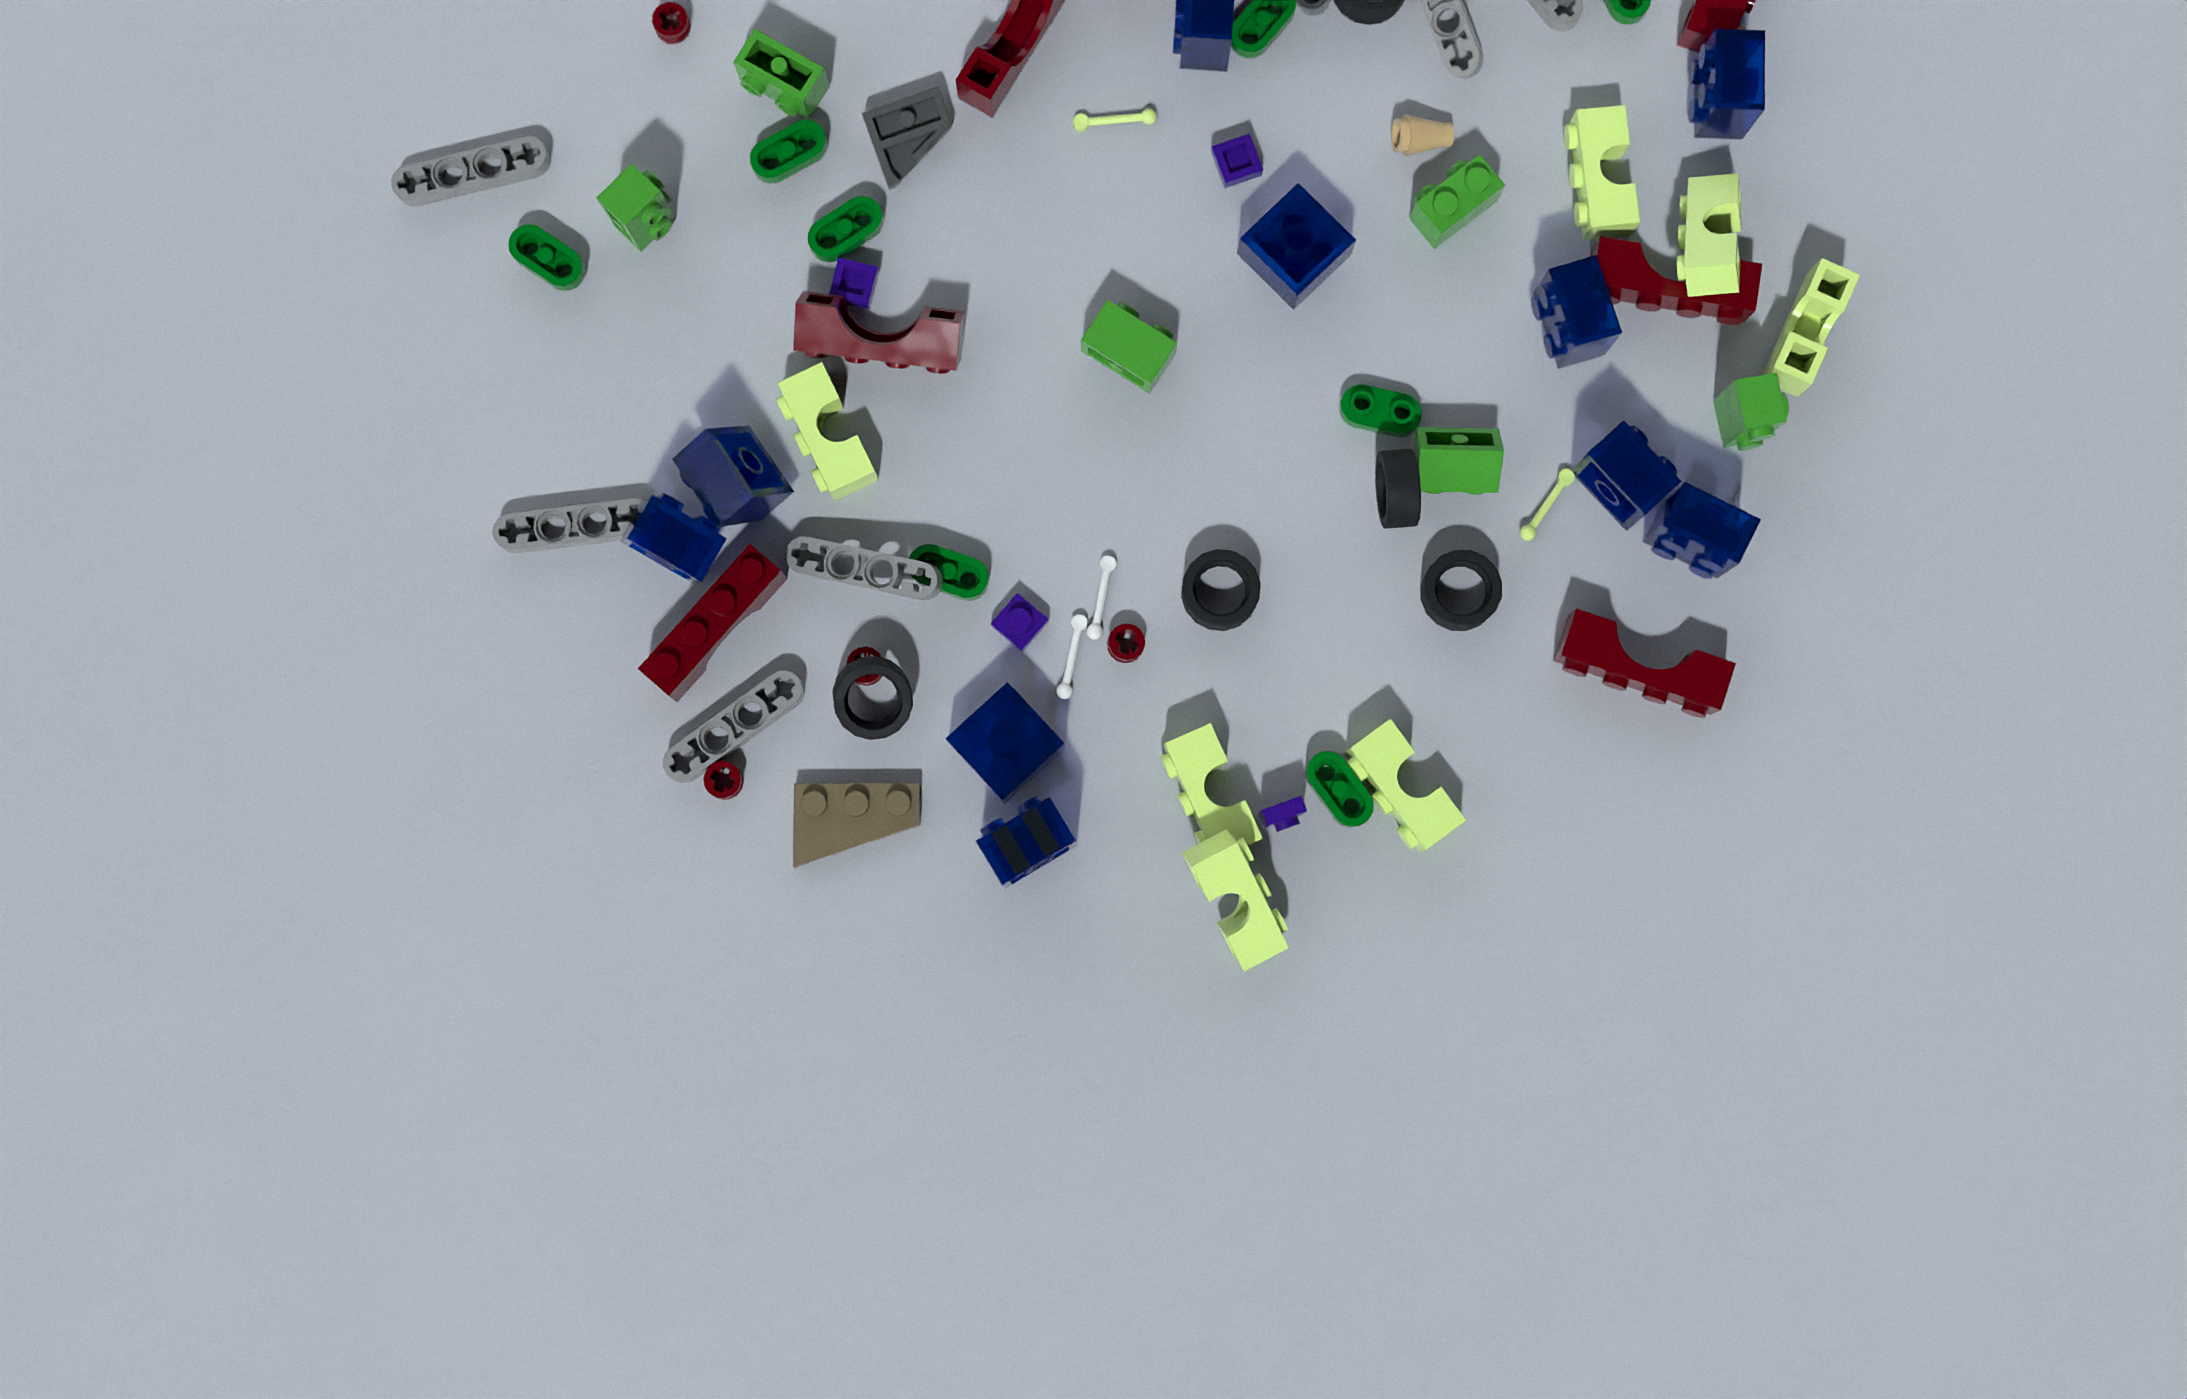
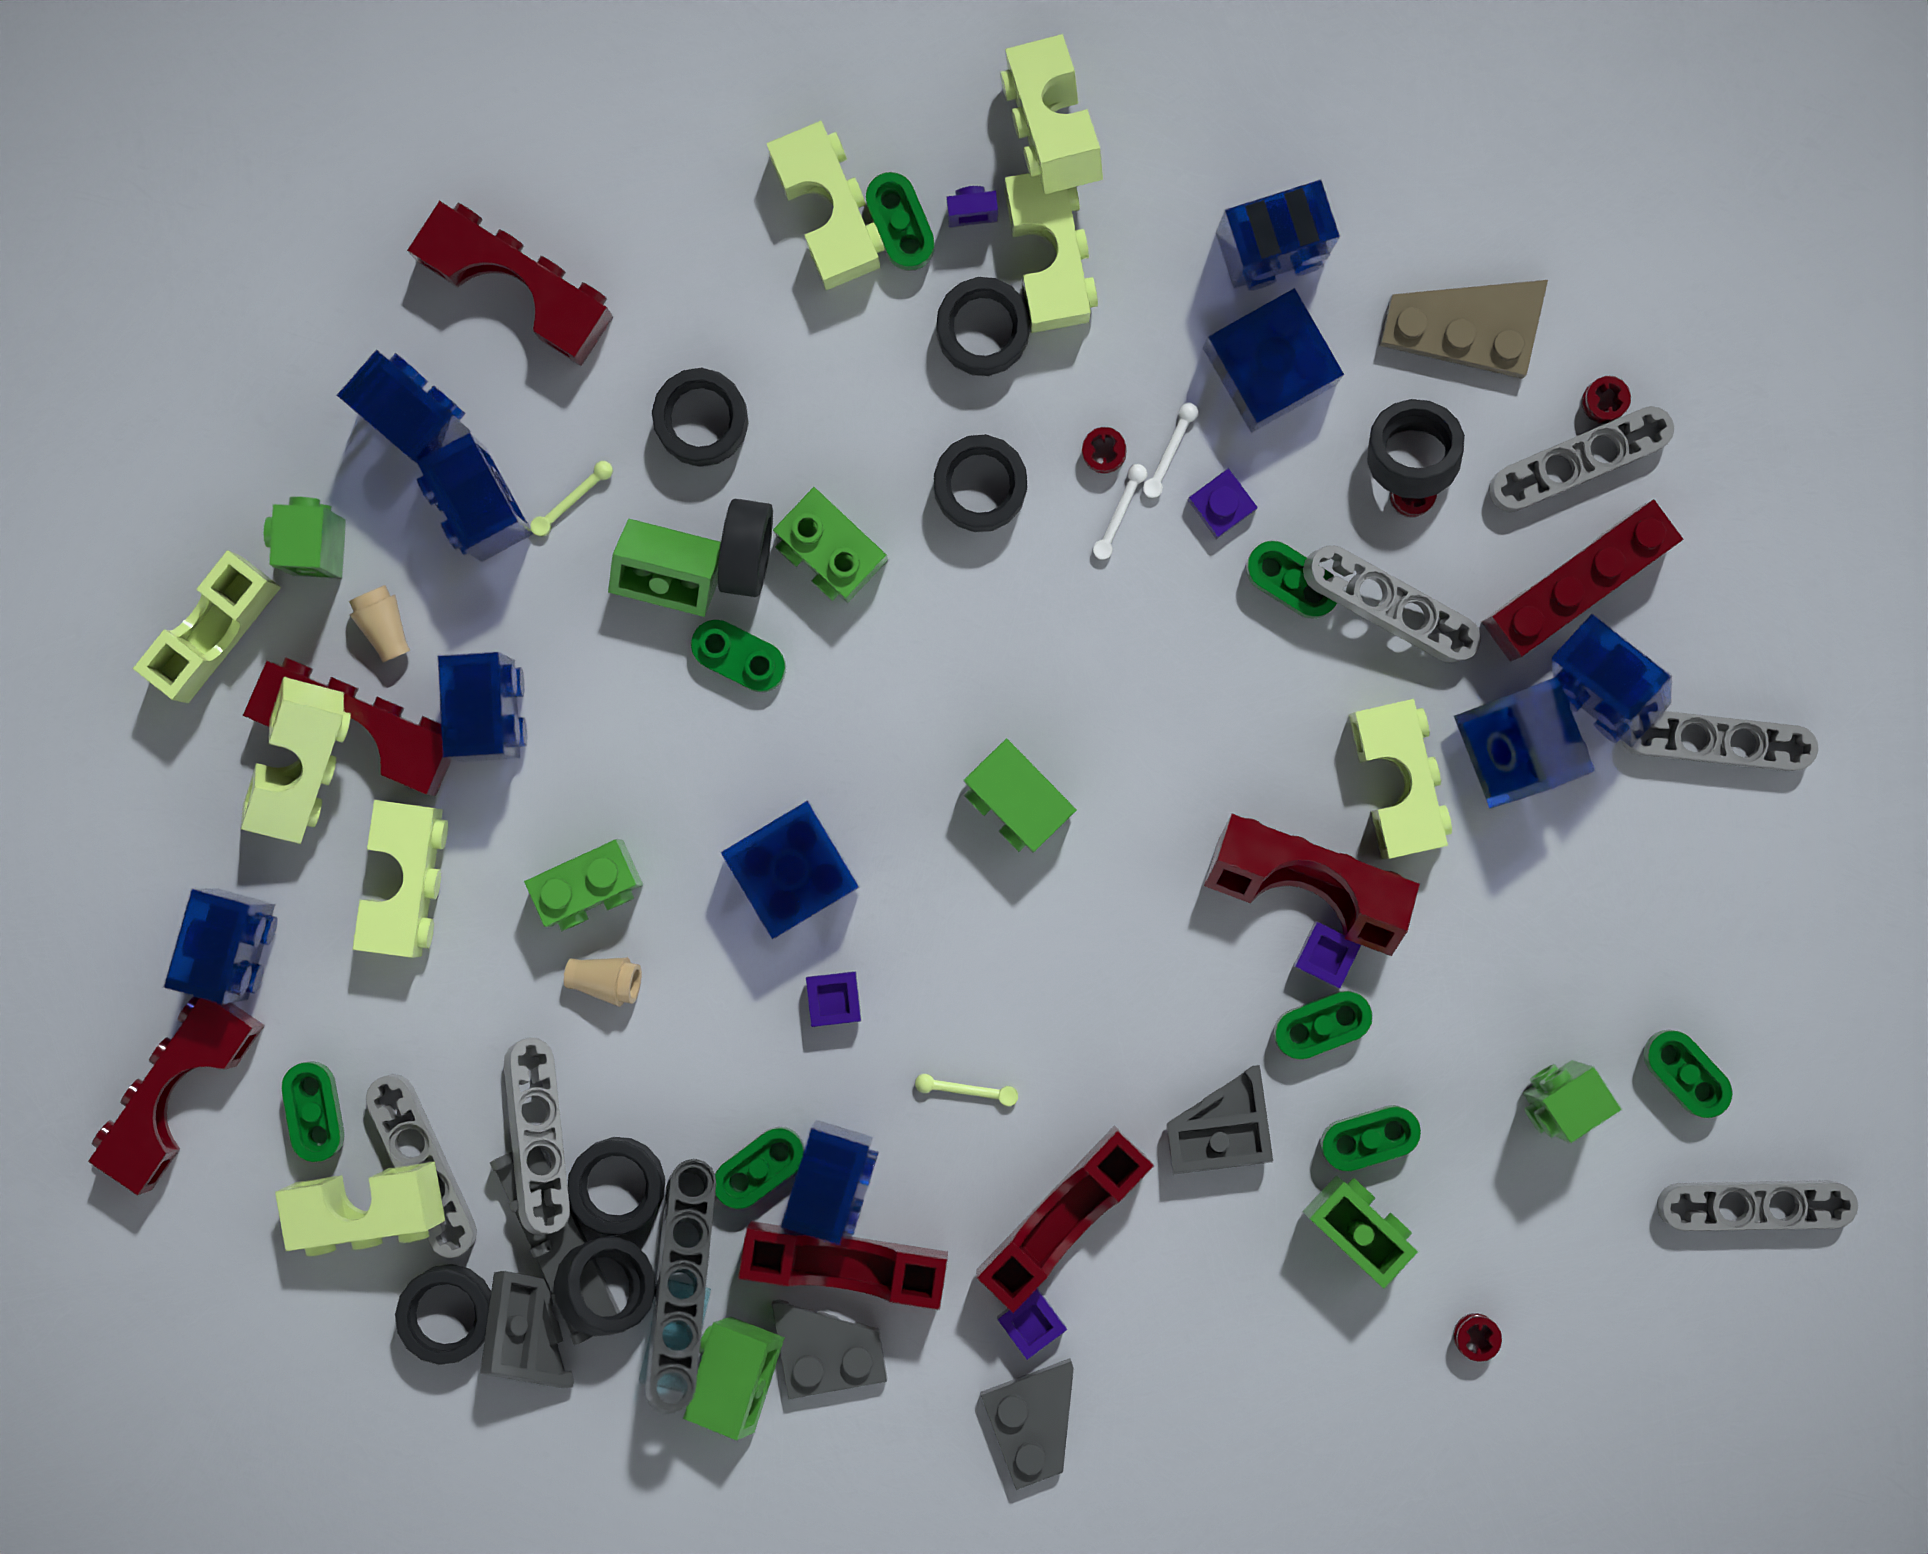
camera: 165 degrees left, 5 degrees up
(1267, 692) = (990, 289): none -> black tyre
(1330, 510) = (829, 546): none -> bright green brick
(1675, 370) = (380, 622): none -> tan cone

